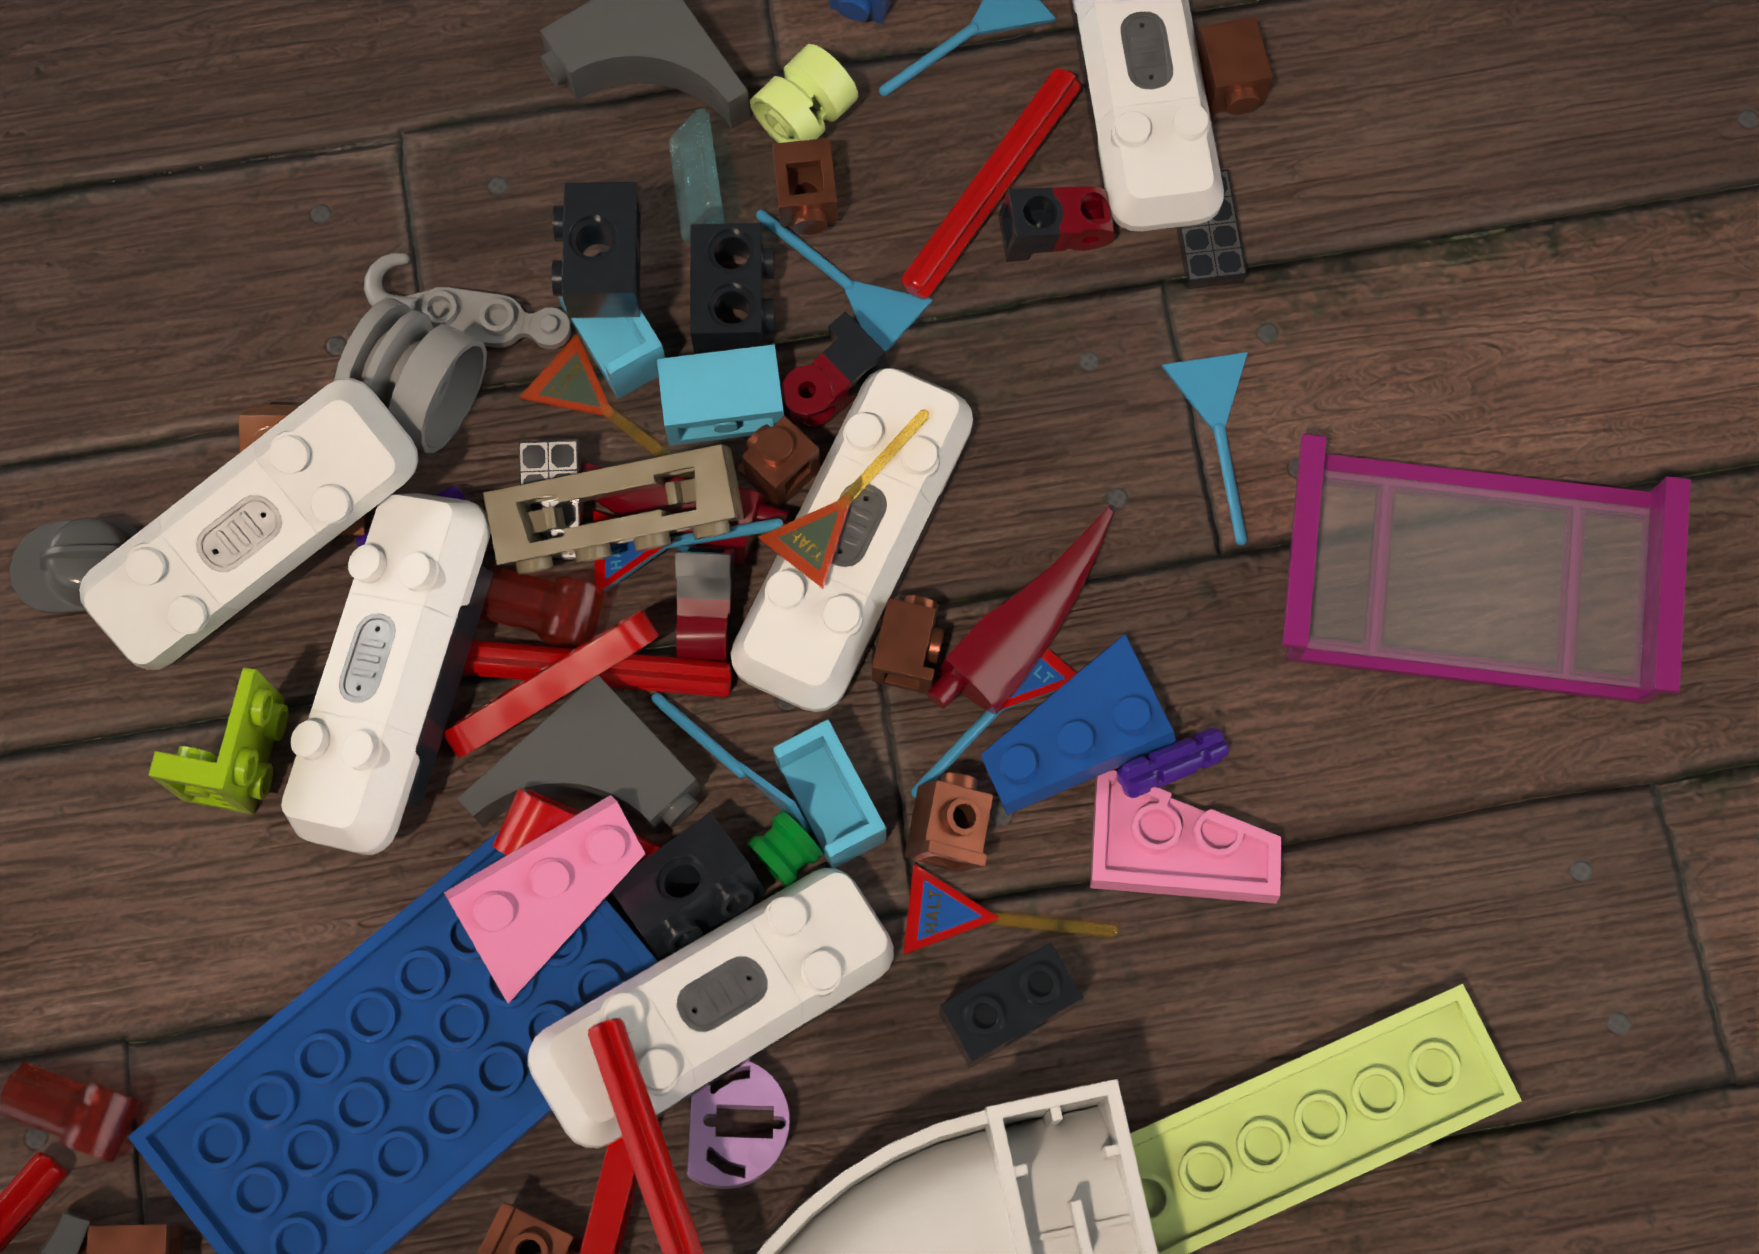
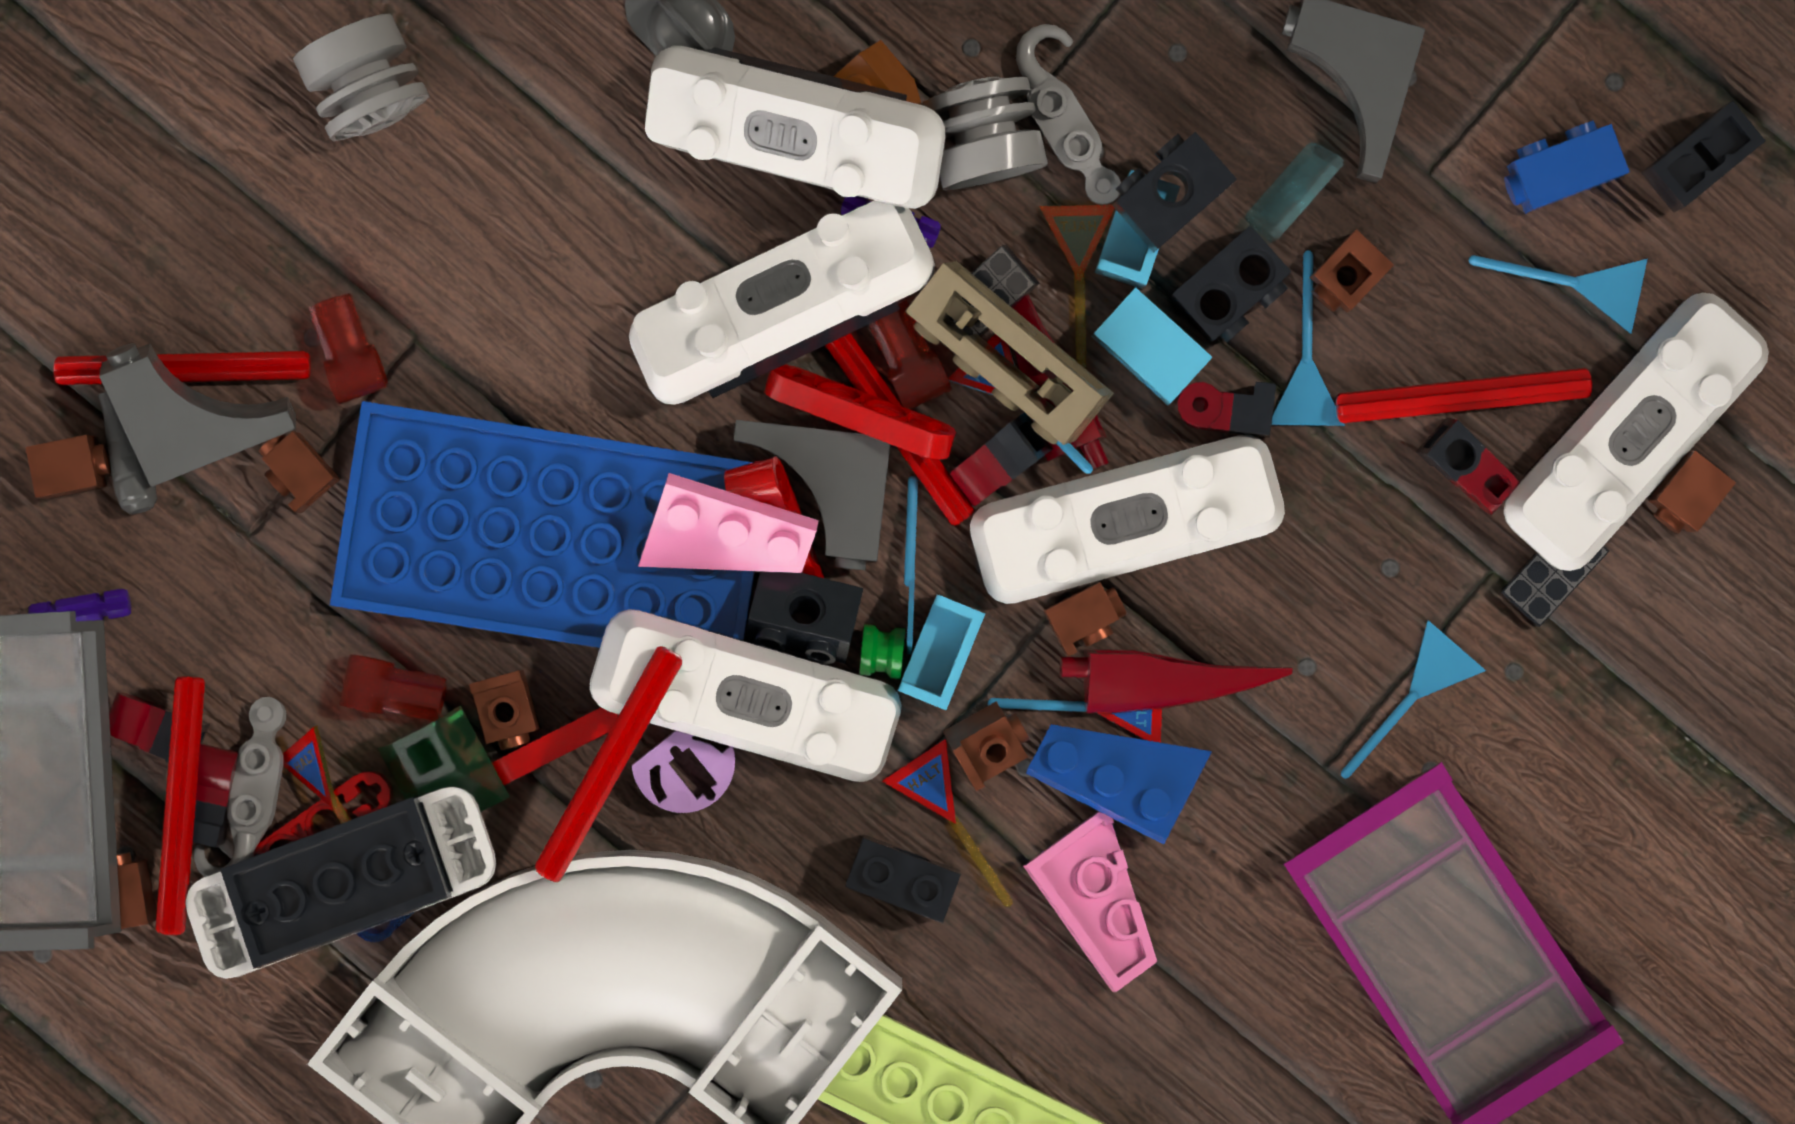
camera: 50 degrees right, 15 degrees up
(242, 765) = (639, 269): lime bracket -> none
(779, 461) = (1136, 424): copper brick -> none
(811, 92) = (1413, 217): yellowish green wheel -> none
(812, 539) = (1096, 502): piece -> none
(1172, 762) = (1148, 853): dark purple axle -> none

